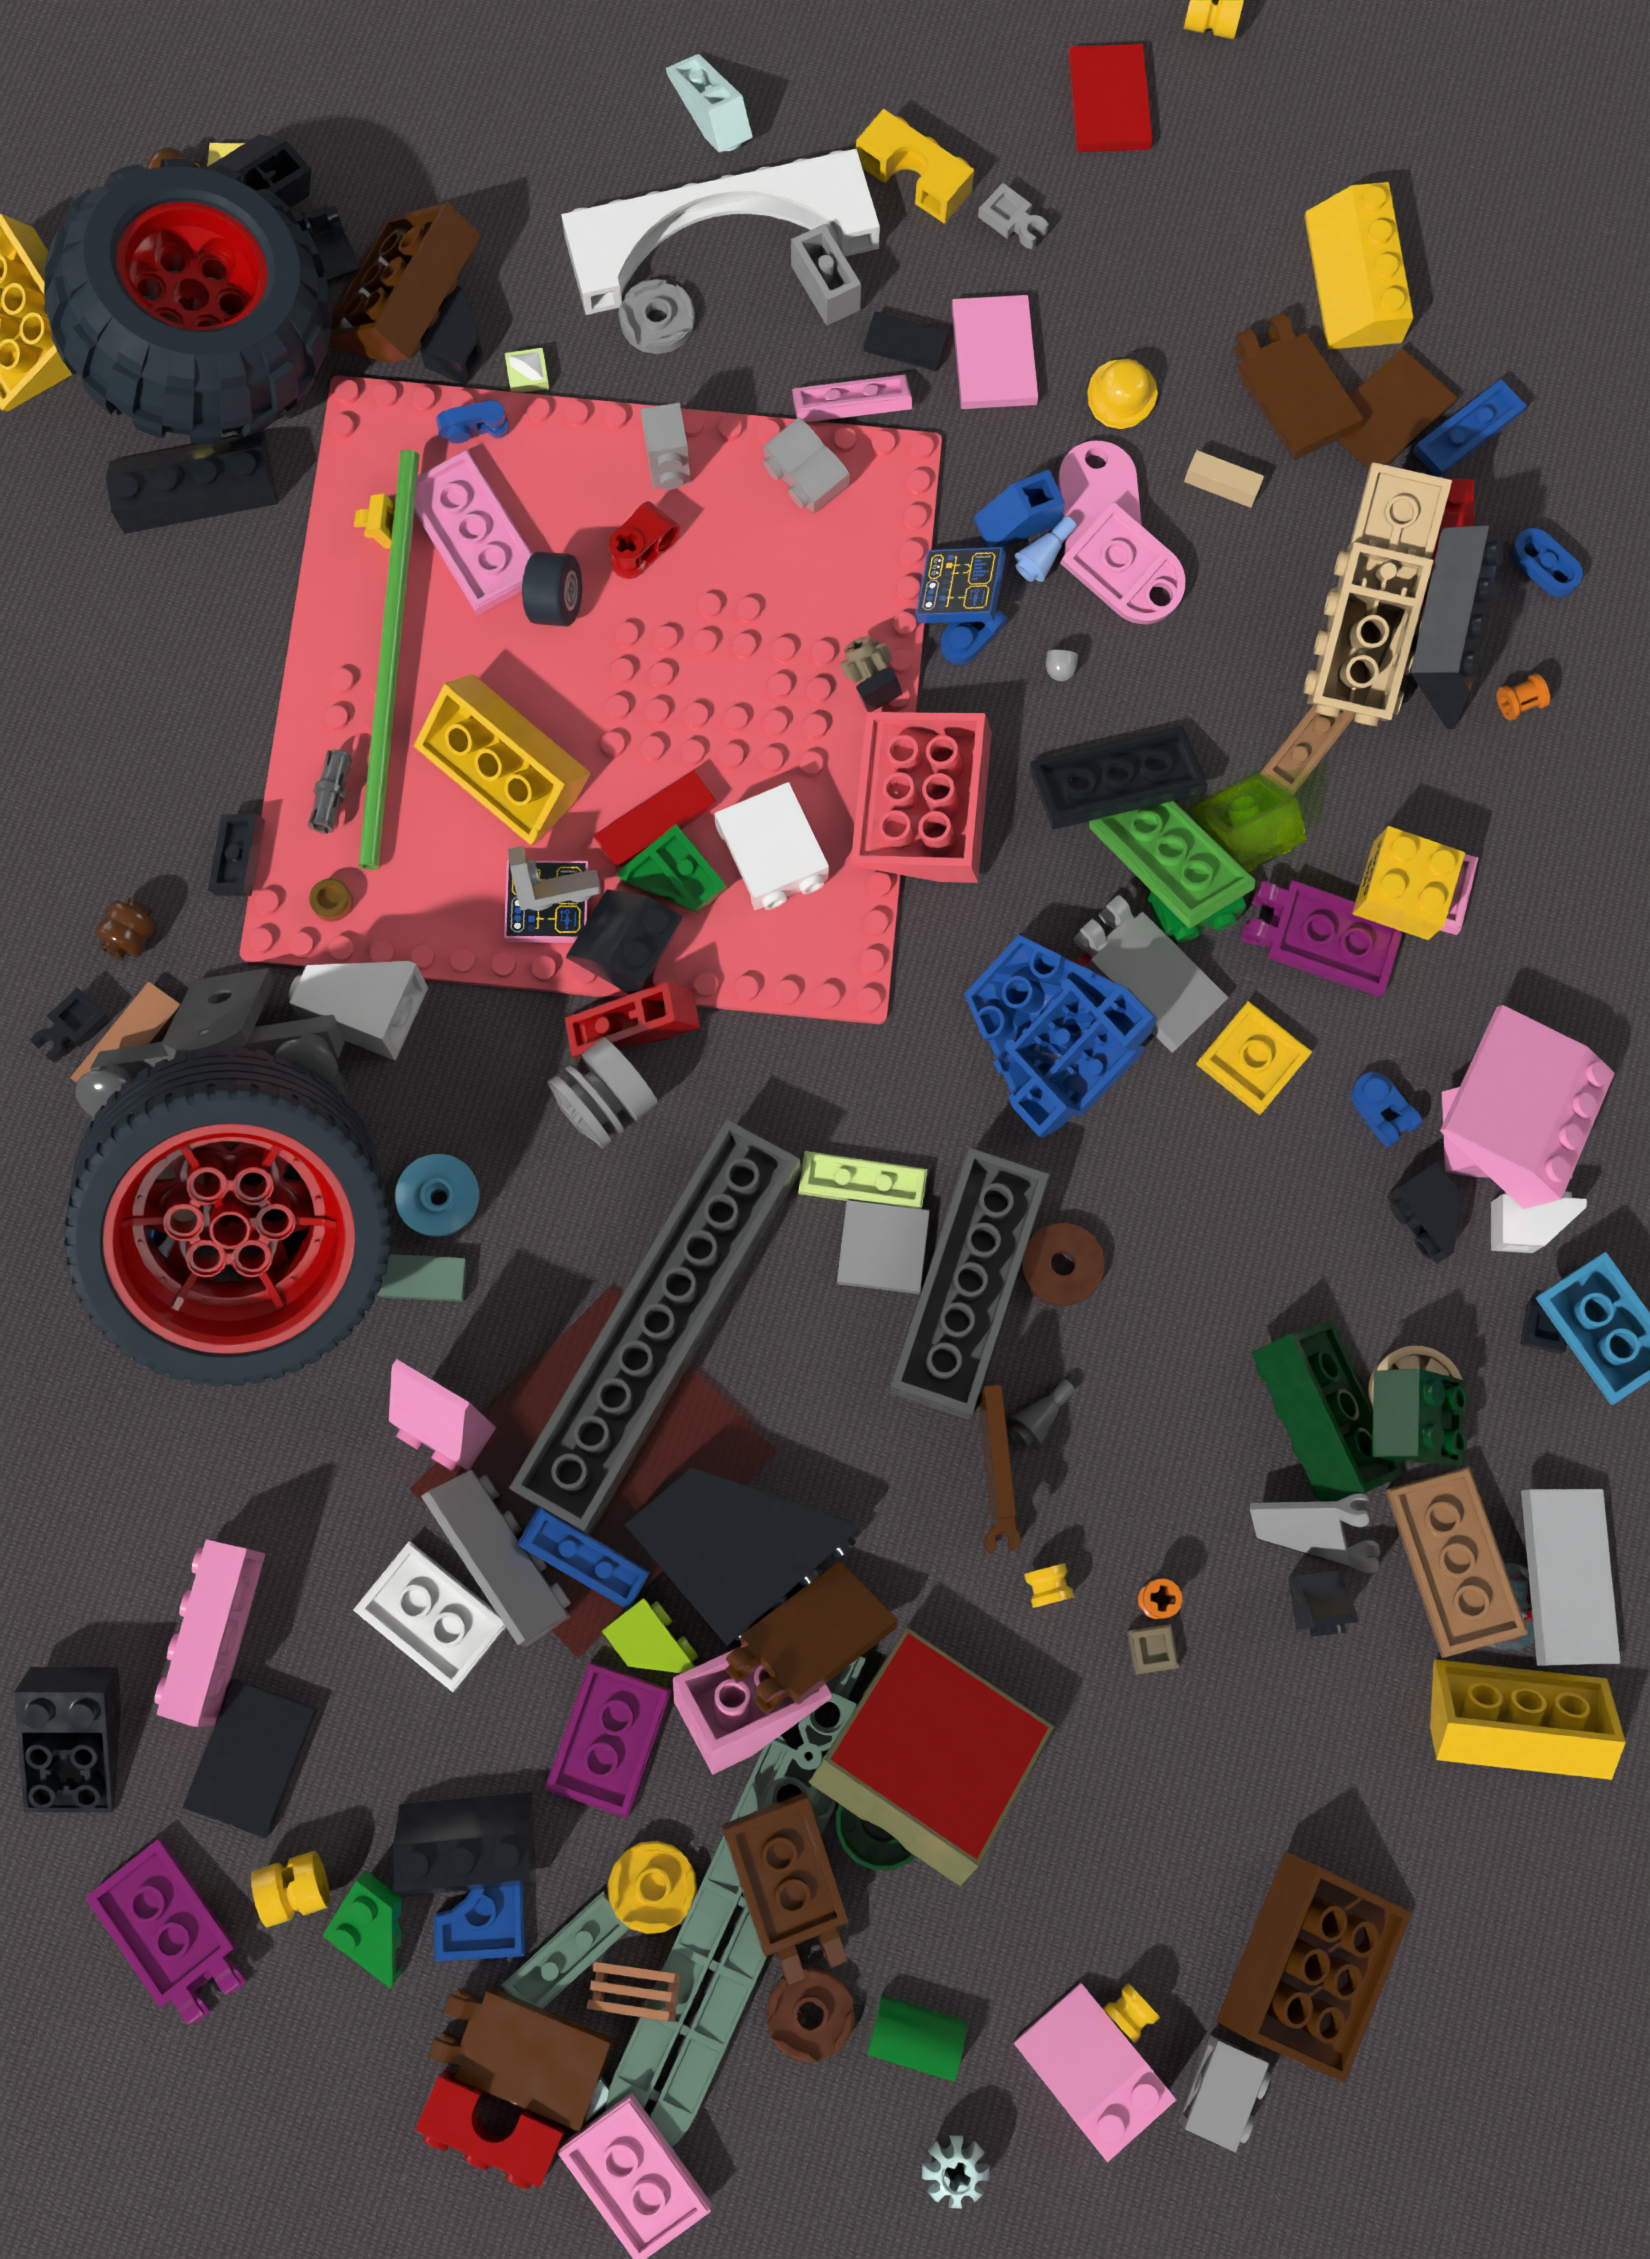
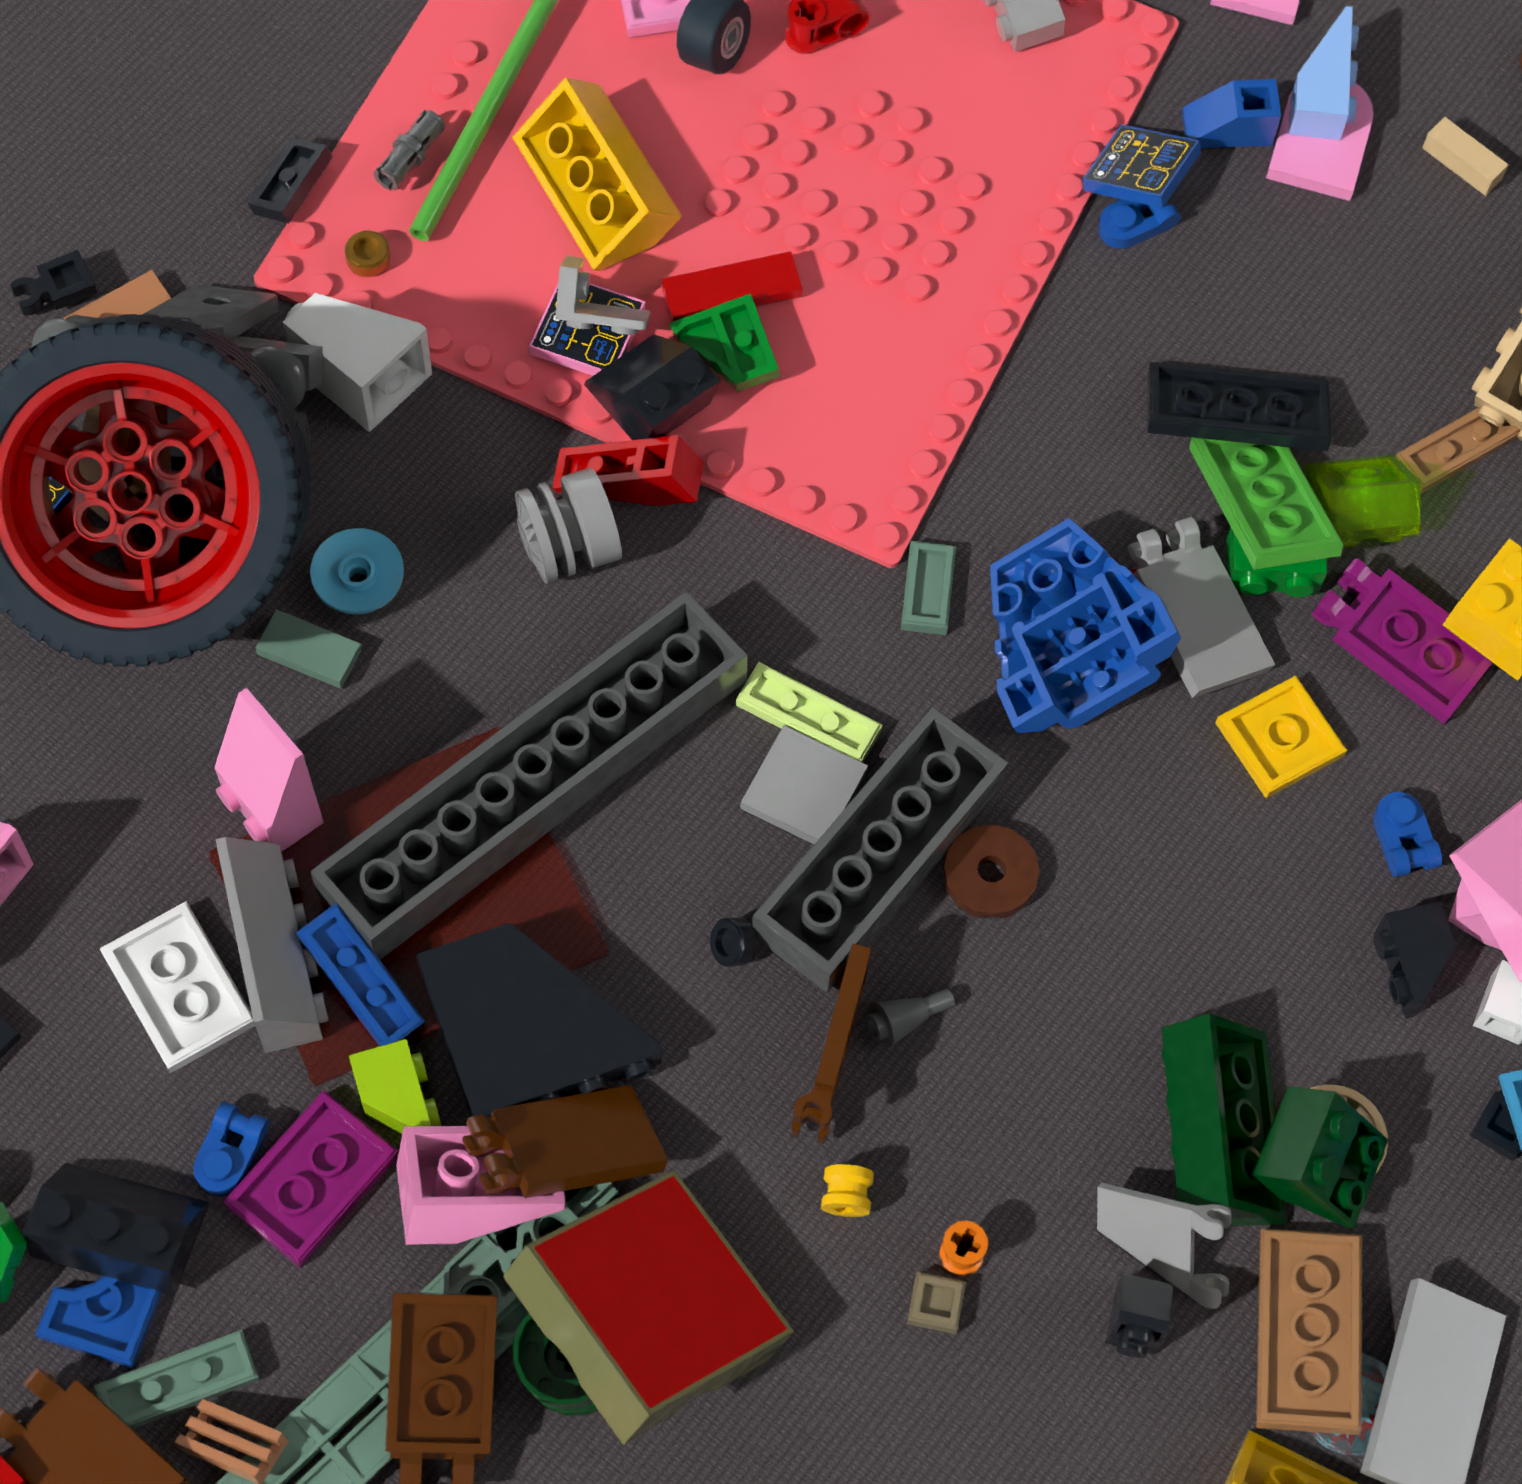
camera: 20 degrees right, 10 degrees down
(126, 929) = (150, 212): reddish brown piece -> none
(530, 1758) = (220, 1165): none -> blue plate
(652, 1887) = (294, 1344): yellow tile -> none
(773, 847) = (842, 350): white panel -> none
(864, 659) = (1012, 204): dark tan gear -> none
(877, 1407) = (733, 941): none -> black tile
(879, 689) = (1015, 236): black tile -> none
(919, 1031) = (928, 588): none -> sand green tile
(922, 795) = (1022, 353): coral slope -> none
(1038, 557) = (1235, 166): light blue cone -> none
(1061, 664) = (1221, 278): light grey hinge -> none
(1089, 467) = (1322, 88): none -> light blue slope
(1122, 393) = (1389, 41): yellow hat -> none
(1123, 565) = (1323, 204): bright pink tile -> none

